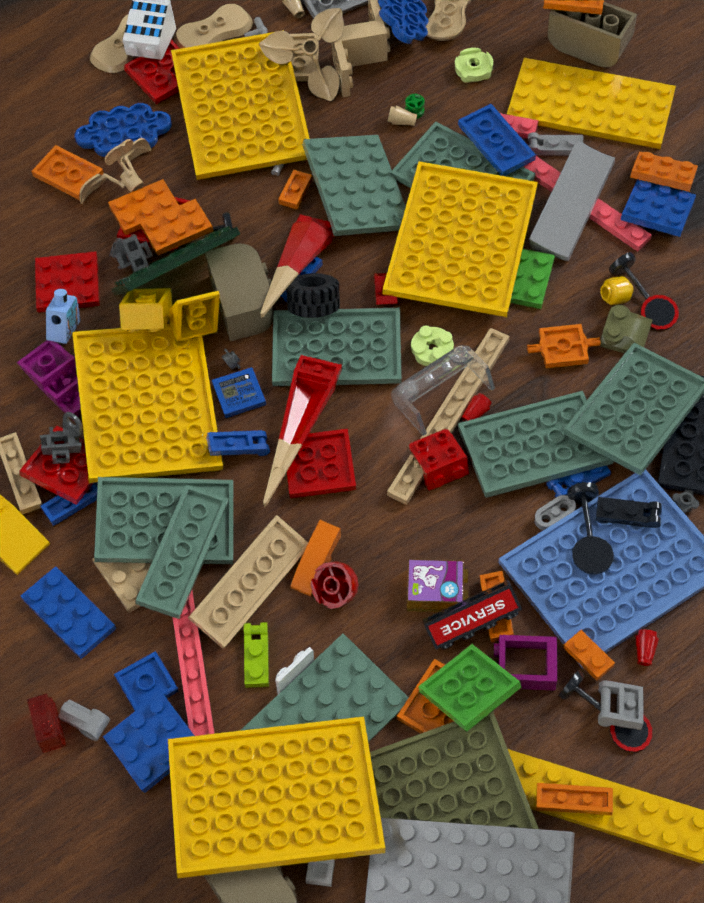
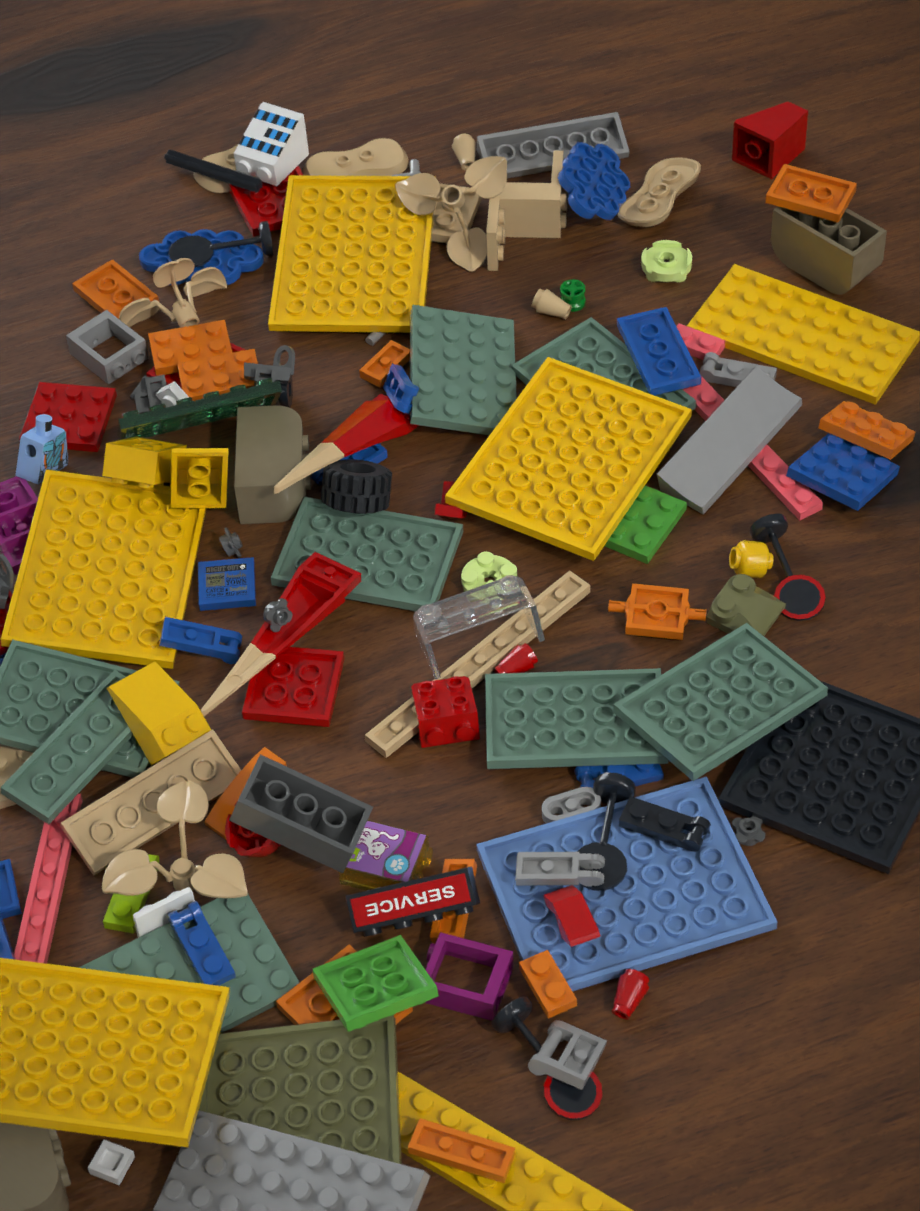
camera: 15 degrees right, 10 degrees down
(65, 206) = (96, 331): none -> light grey window
(108, 56) = (213, 170): none -> black axle
(119, 126) = (201, 249): none -> black piece
(148, 252) = (170, 394): none -> white plate
(222, 217) = (277, 372): none -> dark grey piece
(232, 511) = (158, 712): none -> yellow slope
(263, 647) = (219, 876): none -> tan plant
(293, 412) = (277, 614): none -> dark grey plate
(316, 208) = (400, 388): none -> blue plate
(330, 689) = (201, 946): none -> blue plate
(374, 570) = (301, 813): none -> dark grey brick
(566, 565) = (558, 868): none -> light grey hinge
(591, 599) = (572, 915): none -> red slope

